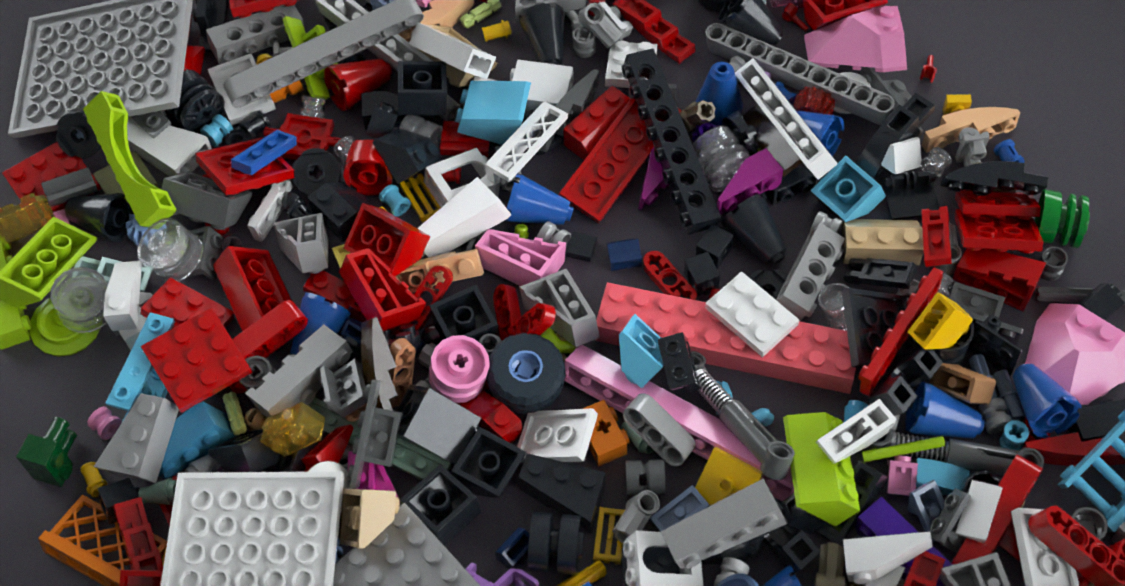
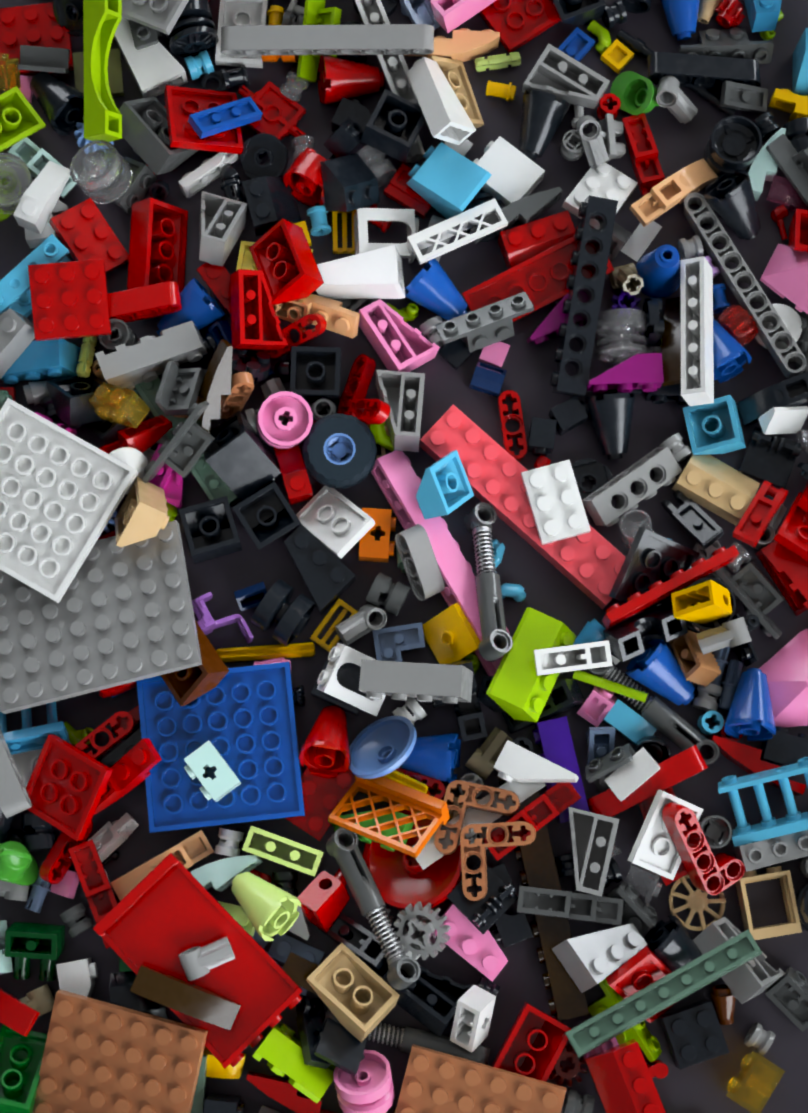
camera: 20 degrees right, 20 degrees up
(597, 206) = (487, 323): none -> dark grey bracket
(616, 229) = (495, 354): none -> bright pink tile
(678, 362) = (466, 516): black bracket -> none
(686, 85) = (640, 240): none -> white sticker
(690, 35) = (673, 191): none -> light nougat slope
(982, 339) = (728, 635): none -> light grey piece

